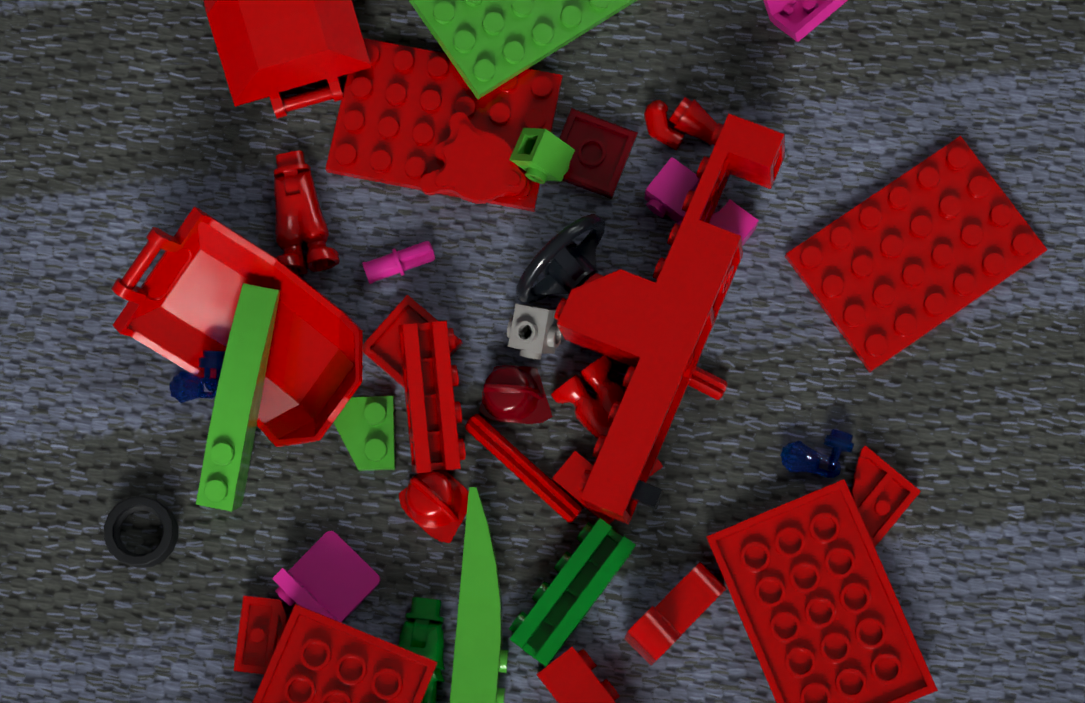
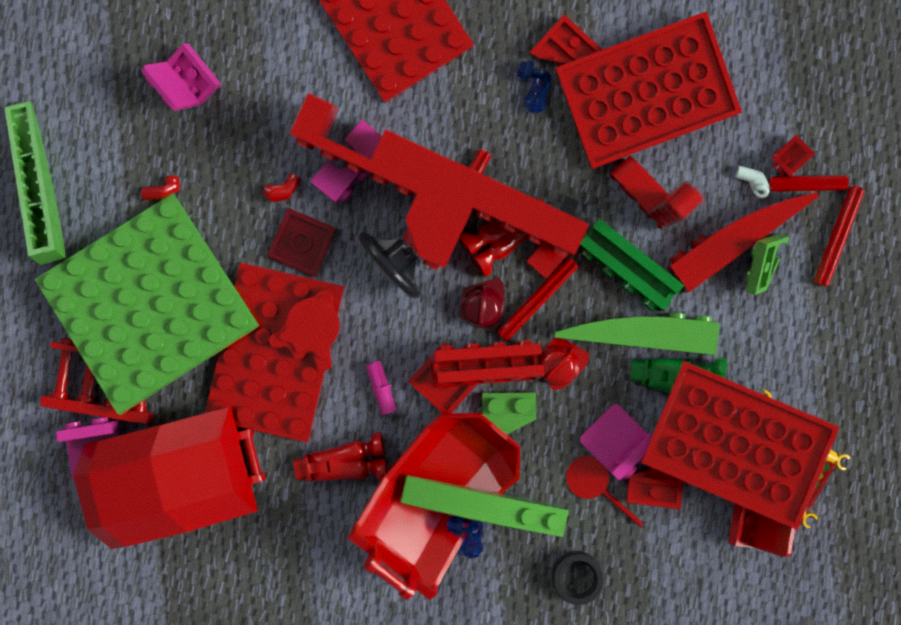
camera: 95 degrees left, 10 degrees up
(273, 545) = (589, 479): none -> red piece
(533, 331) = (438, 287): light grey brick -> none
(542, 155) = (307, 278): bright green brick -> none
(693, 120) = (280, 164): red cone -> none

